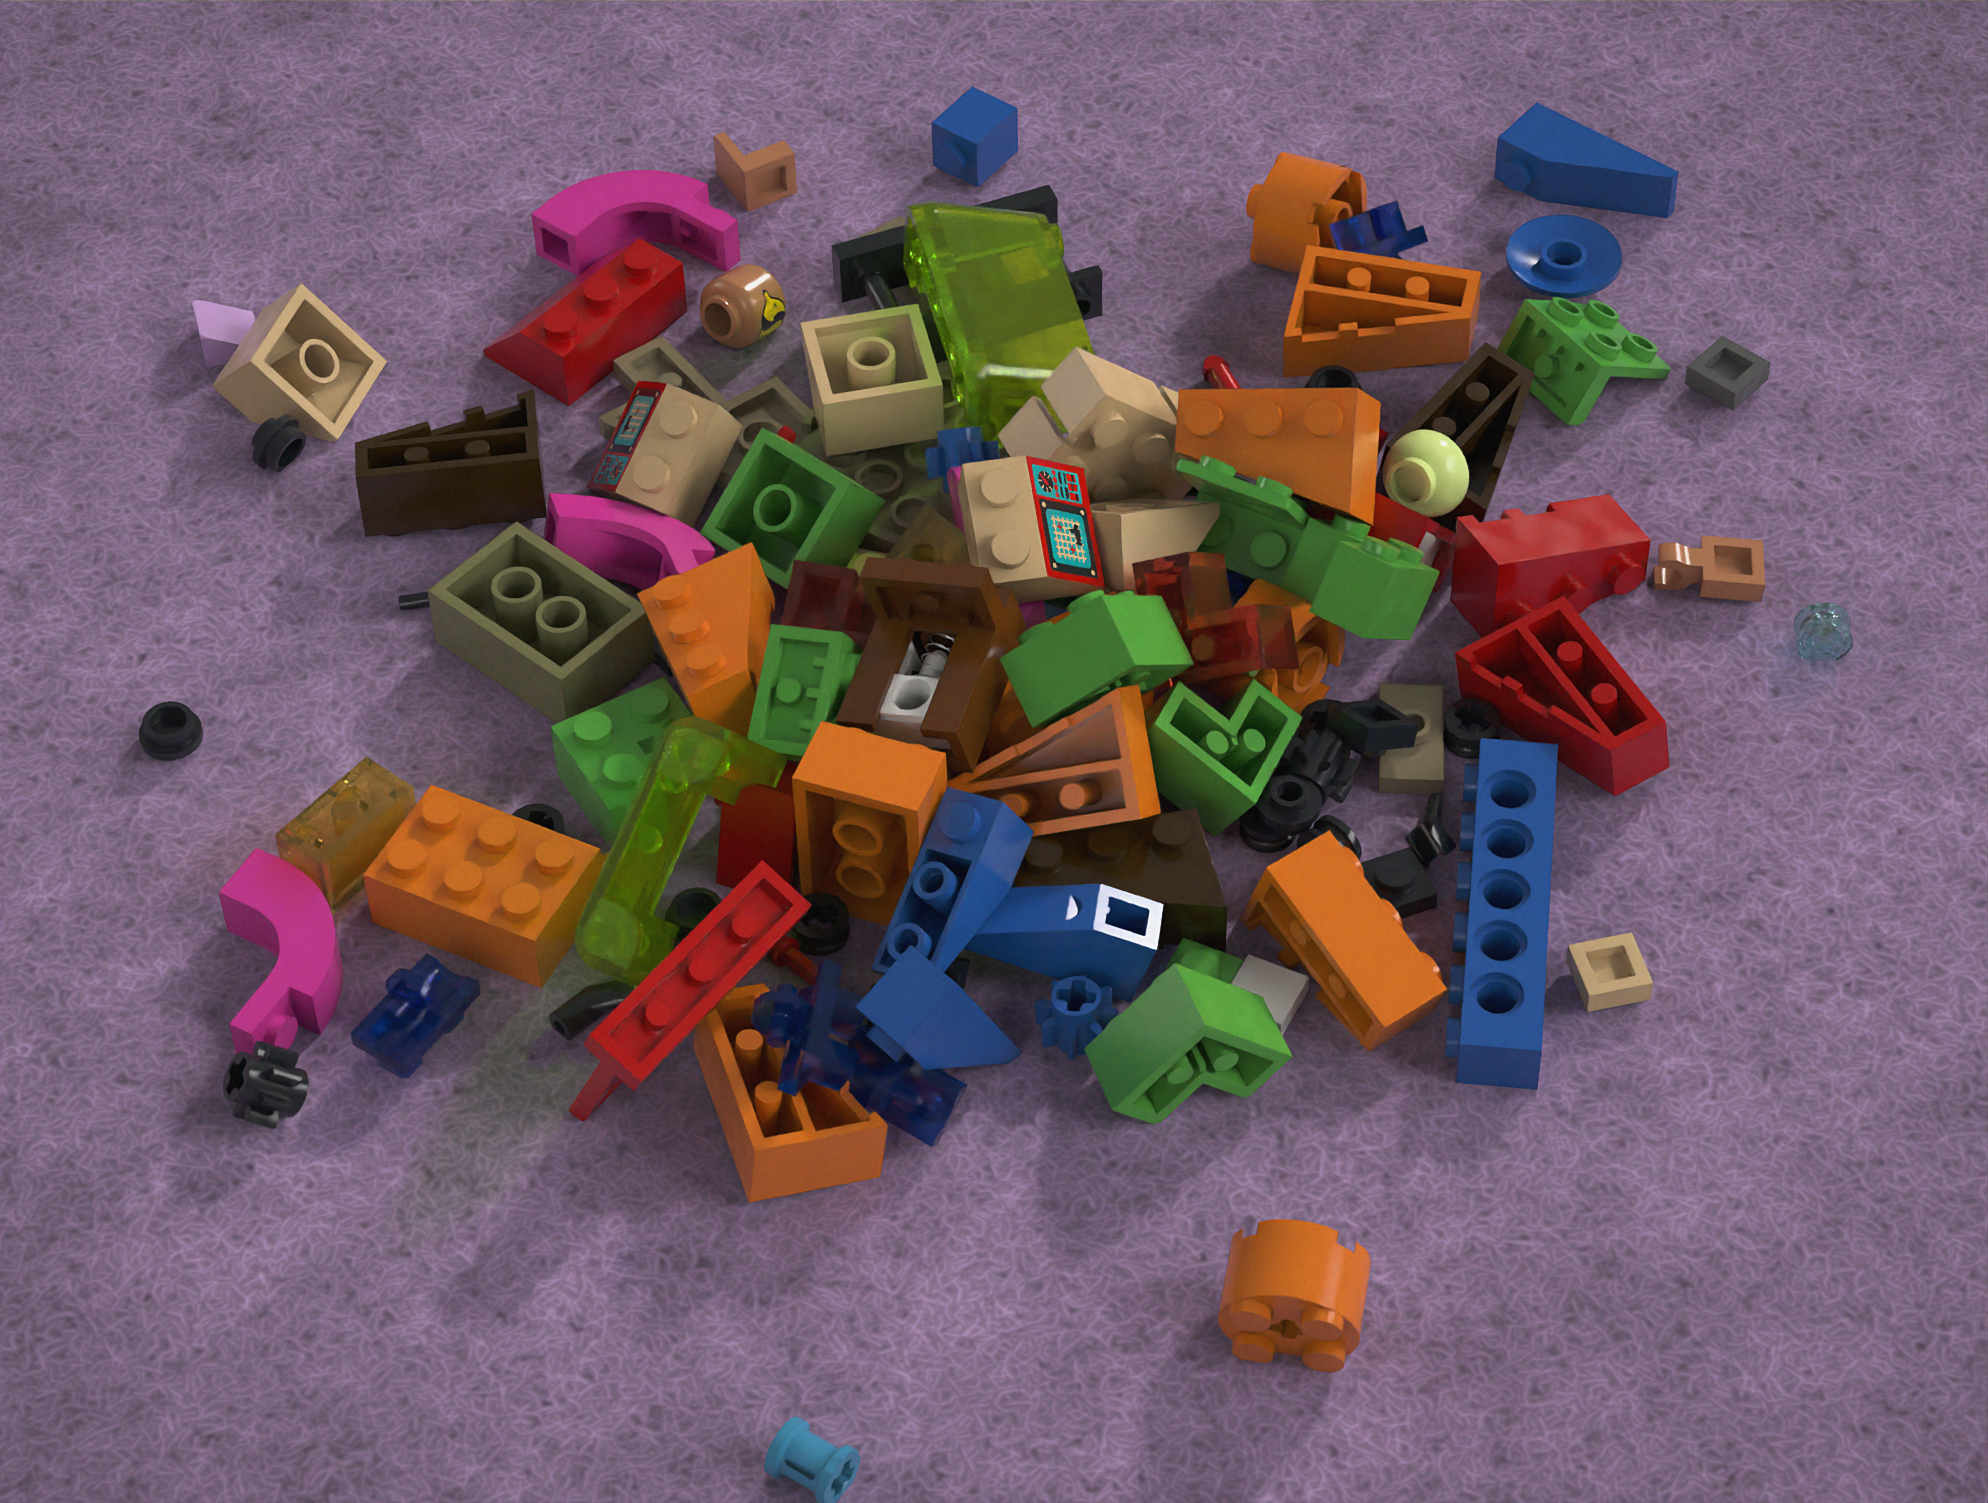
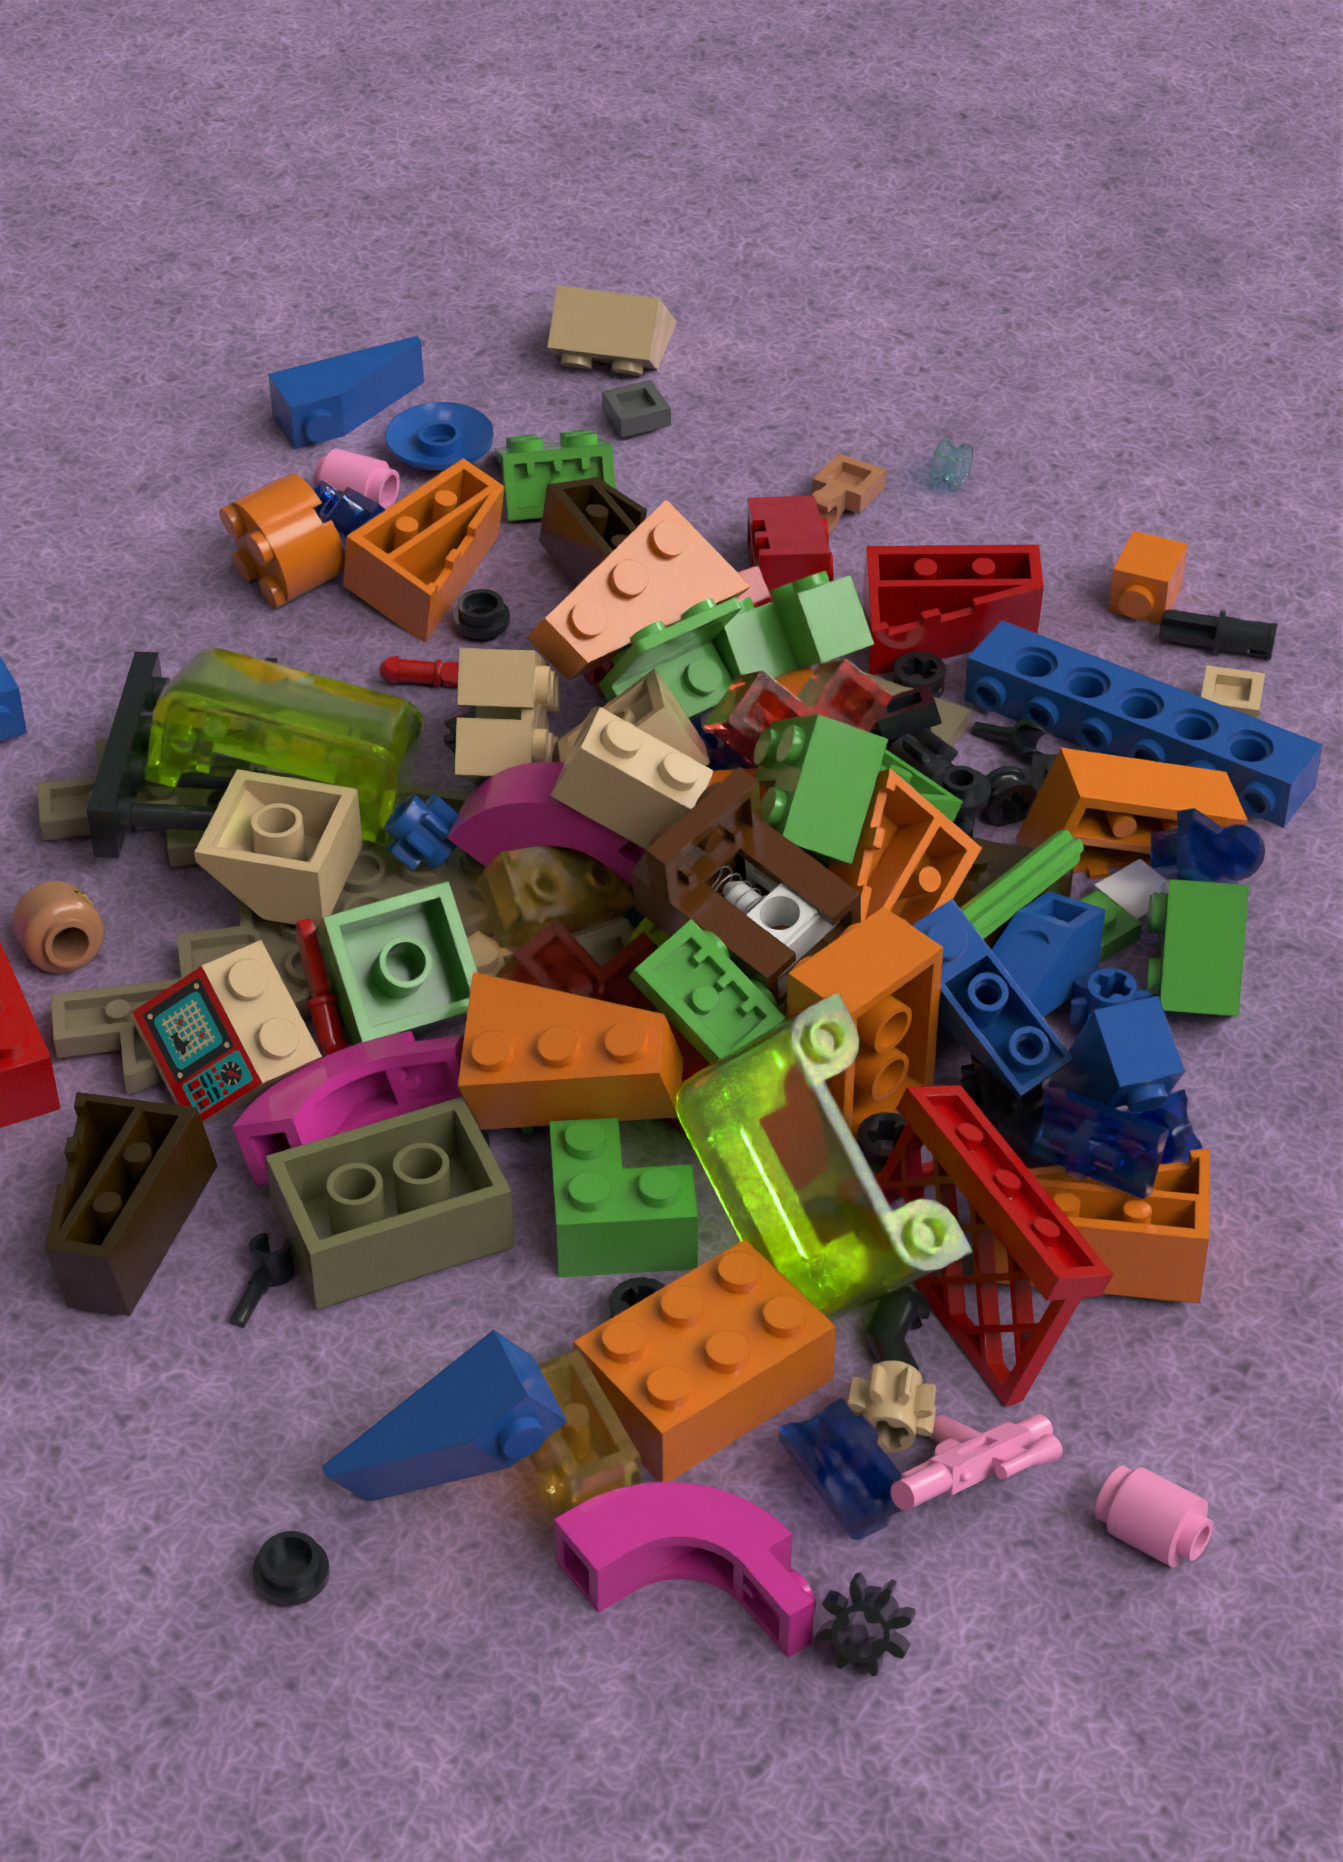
camera: 65 degrees left, 5 degrees down
(308, 746) = (459, 1425): none -> blue slope
(471, 1095) = (971, 1456): none -> bright pink piece
(479, 1240) = (1154, 1515): none -> bright pink brick
(500, 1022) = (894, 1404): none -> tan gear
(1126, 870) = (1023, 882): none -> bright green axle
(1308, 1013) = (1206, 850): none -> clear blue hips
(1452, 229) = (361, 473): none -> bright pink brick
(1712, 934) = (1219, 633): none -> black axle
(1745, 844) = (1147, 577): none -> orange brick
(1830, 303) = (609, 329): none -> tan slope

